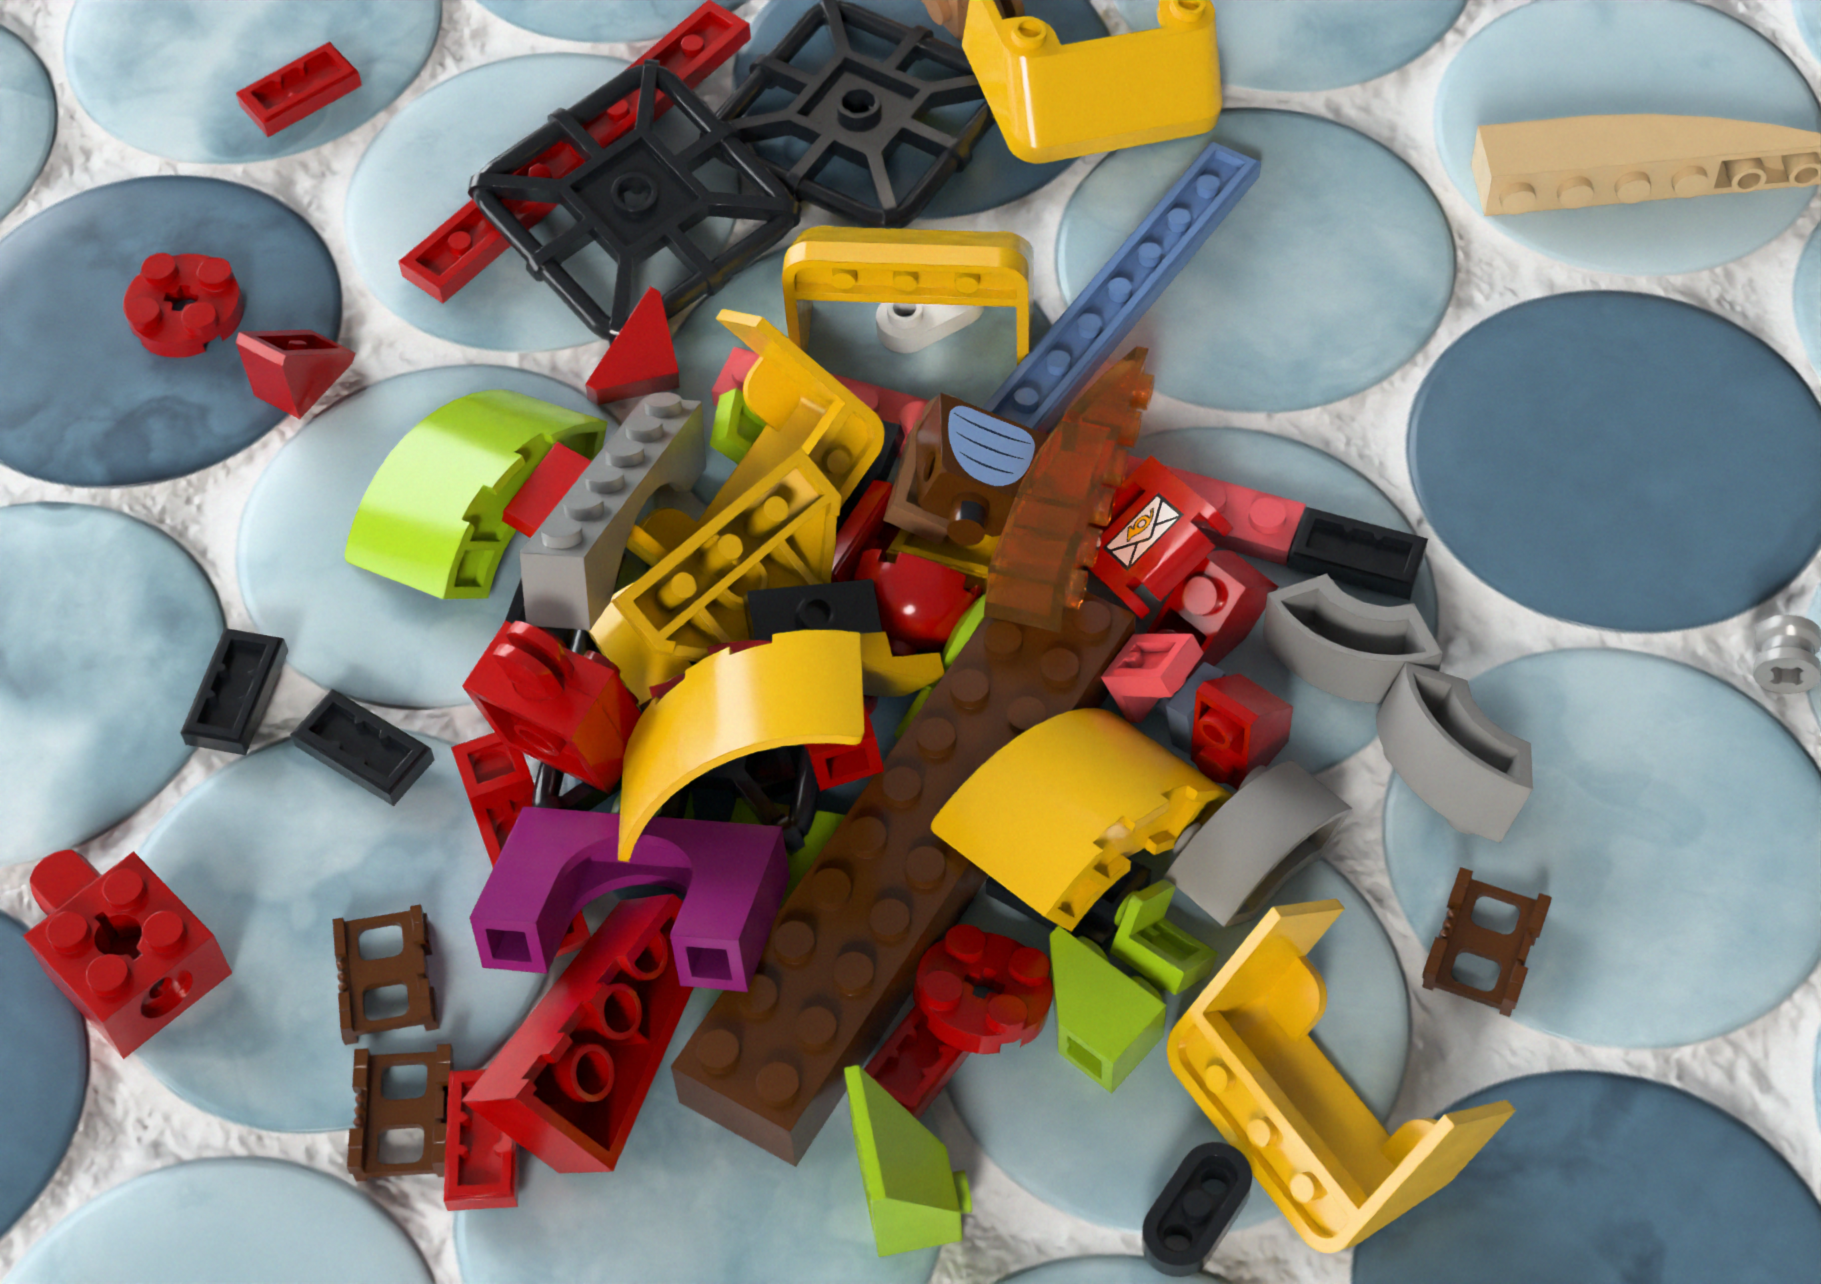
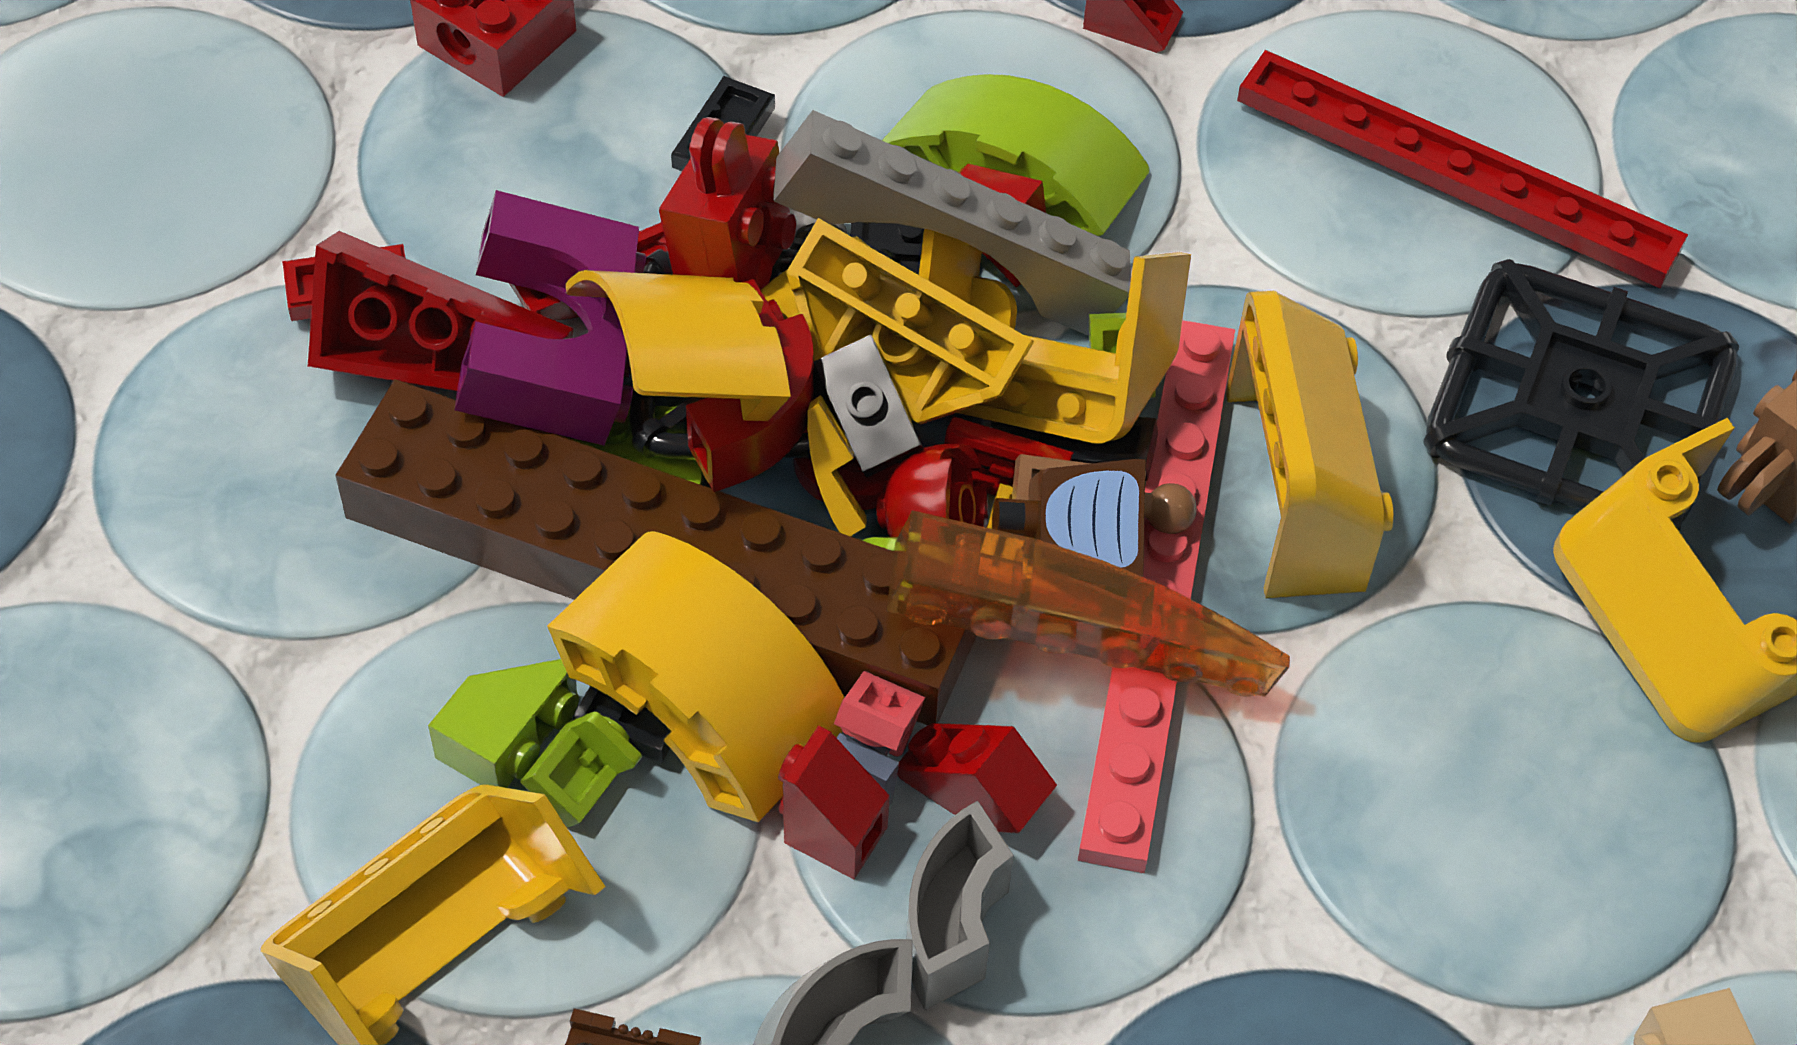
camera: 75 degrees right, 0 degrees up
(234, 691) = (768, 34): black plate -> none
(378, 1114) = (371, 214): reddish brown piece -> none
(407, 968) = (498, 176): reddish brown piece -> none
(639, 358) = (1216, 244): red slope -> none
(641, 165) = (1397, 245): black plate -> none
(904, 1172) = (317, 564): lime slope -> none
(914, 1064) = (441, 584): red plate -> none
(986, 959) = (503, 591): red plate -> none
(1124, 289) = (1397, 657): medium blue tile -> none
(1154, 535) = (1043, 694): container -> none
(1193, 1212) = (310, 827): black plate -> none
(1256, 842) = (701, 839): light grey brick -> none
(1357, 553) = (1092, 918): black plate -> none

